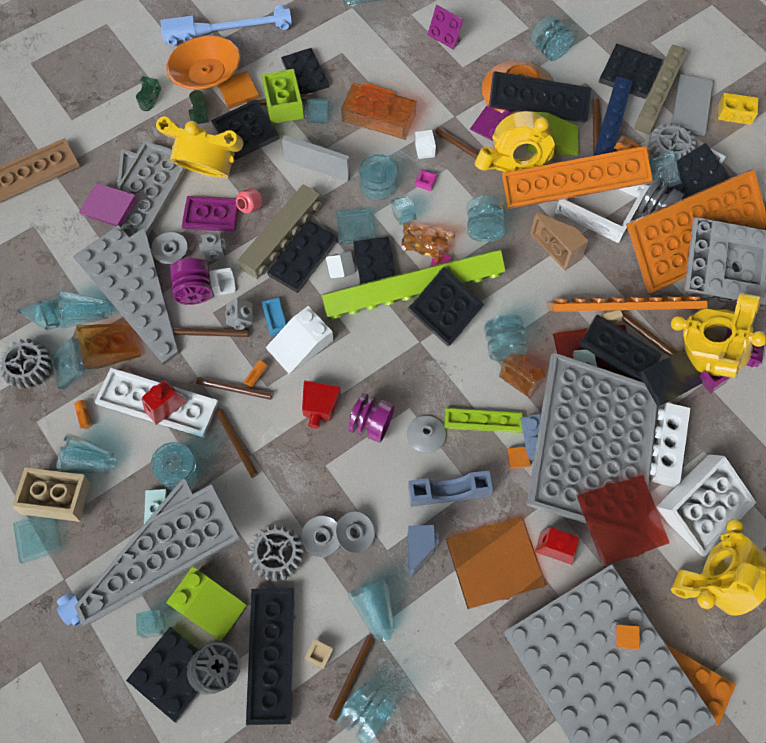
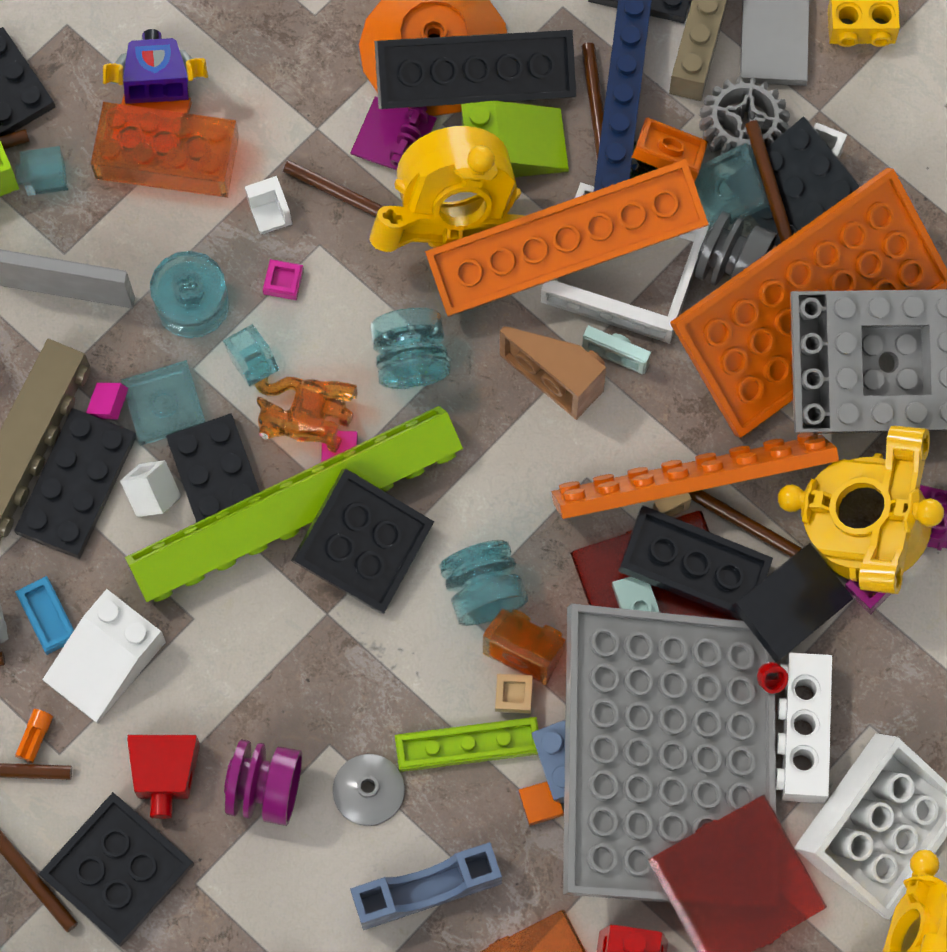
camera: 10 degrees left, 5 degrees up
(284, 449) = (116, 869): none -> black plate
(327, 219) = (107, 400): none -> dark pink tile
(380, 74) = (154, 70): none -> dark purple torso
(512, 398) = (513, 693): none -> tan plate
(595, 240) = (616, 349): none -> light aqua plate
(654, 417) = (771, 683): none -> red hinge
(682, 168) = (768, 180): none -> reddish brown bar

